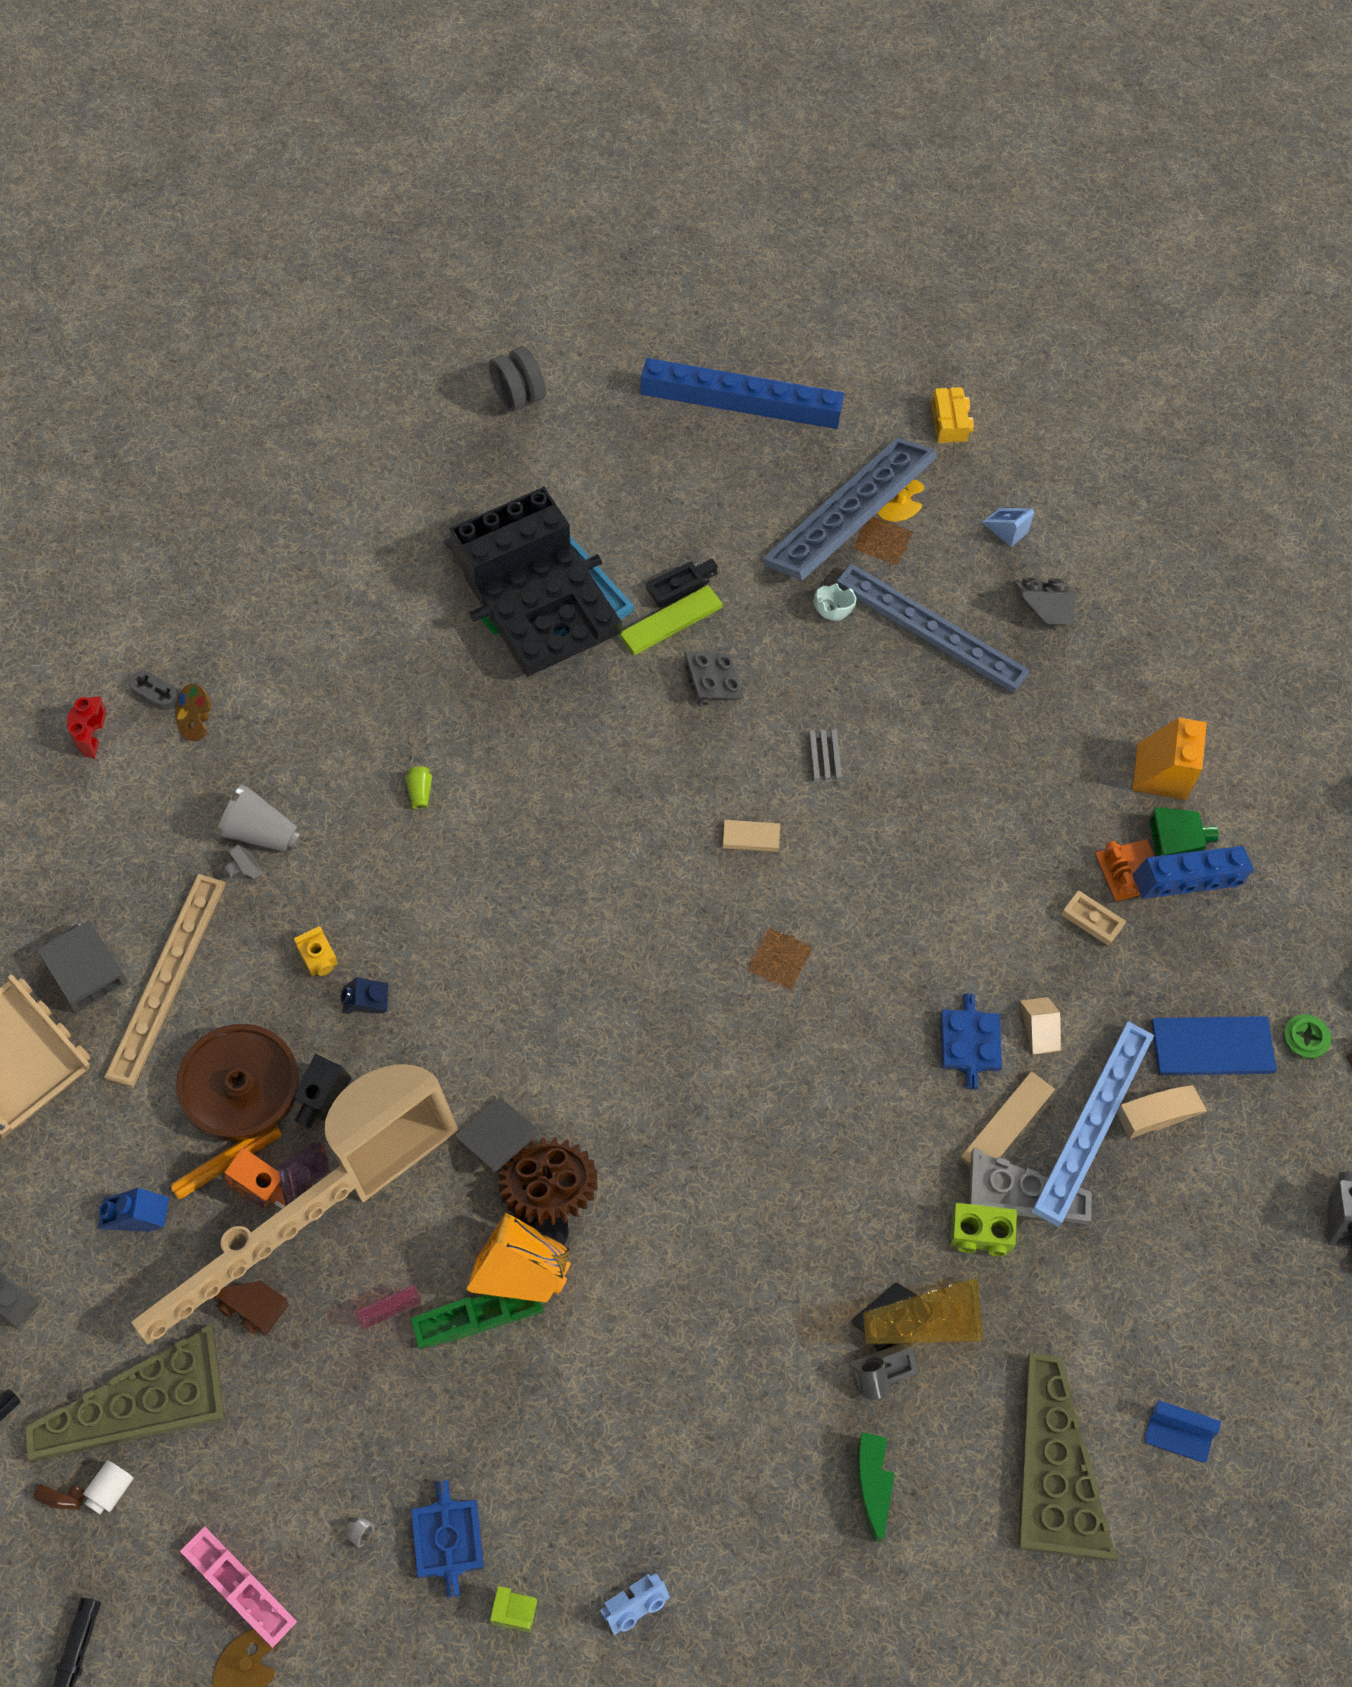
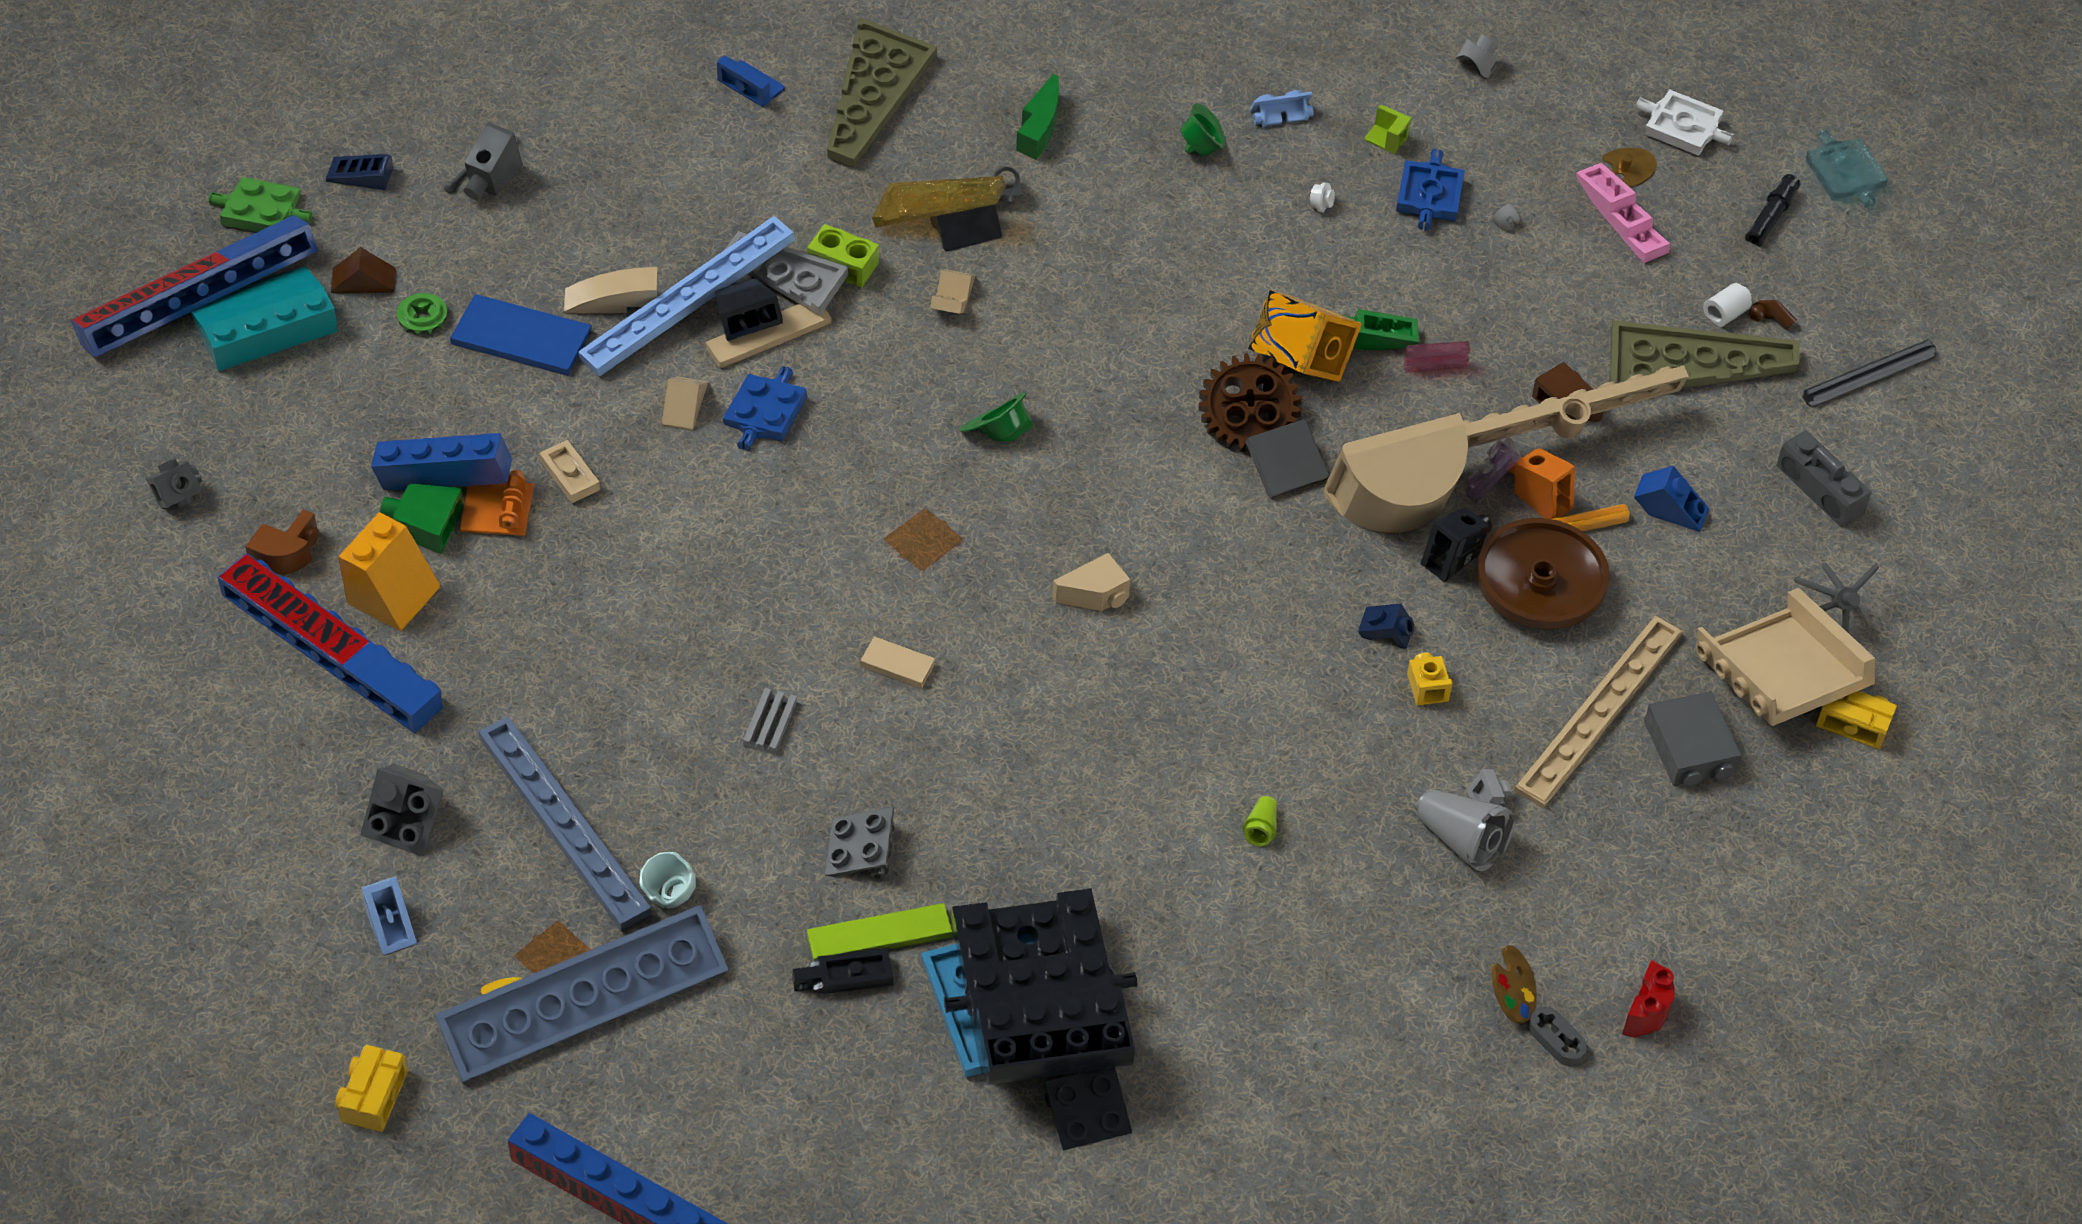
camera: 160 degrees left, 10 degrees down
(556, 1483) = (1322, 197): none -> white plate
(620, 948) = (1093, 585): none -> tan slope
(701, 1529) = (1202, 132): none -> green piece
(767, 1087) = (1003, 422): none -> green piece
(865, 1226) = (953, 291): none -> tan slope
(1038, 1125) = (747, 308): none -> black torso
(1167, 701) = (331, 642): none -> brick
(1266, 769) = (286, 550): none -> dark orange brick

